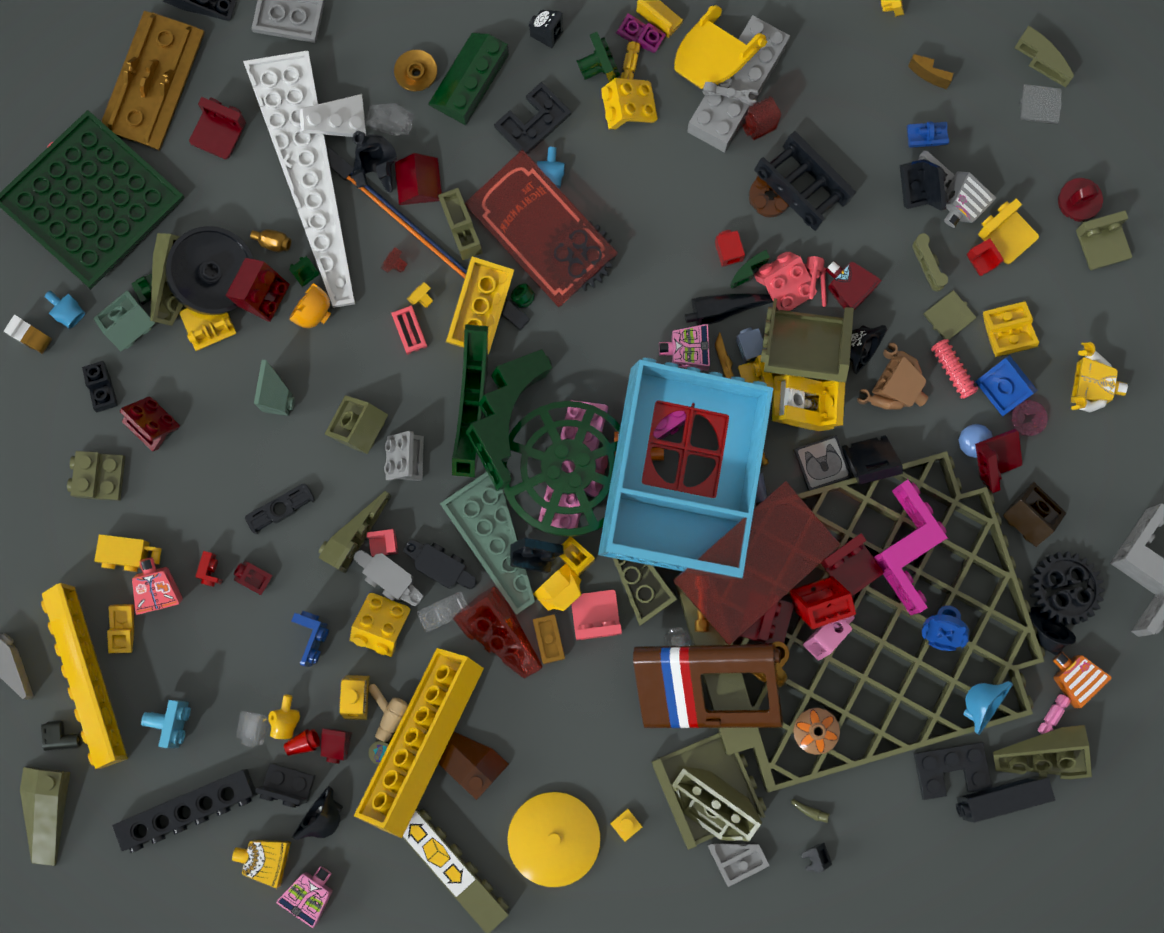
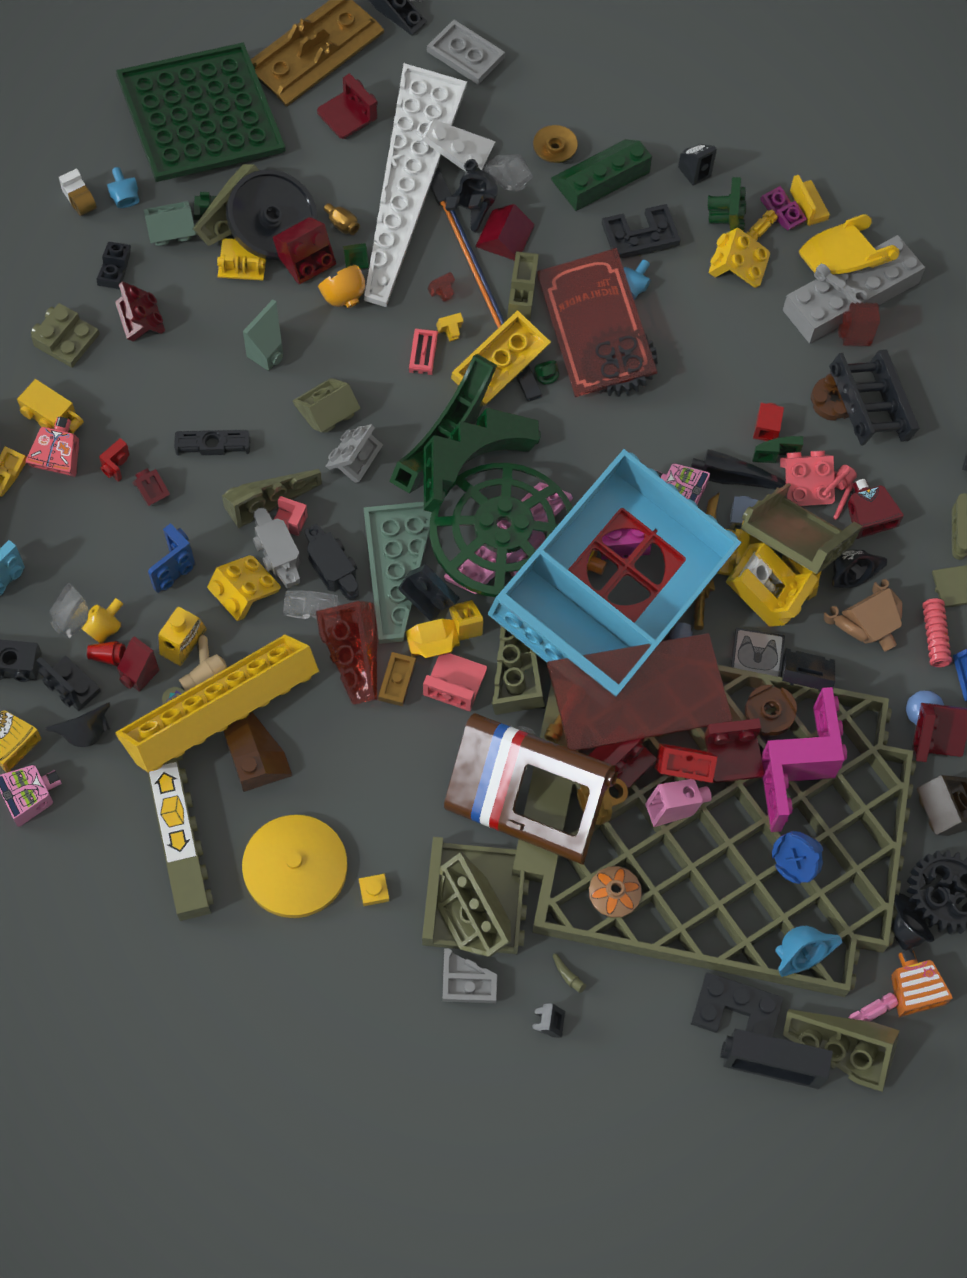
camera: 25 degrees right, 15 degrees down
(860, 500) = (773, 697): none -> reddish brown plate

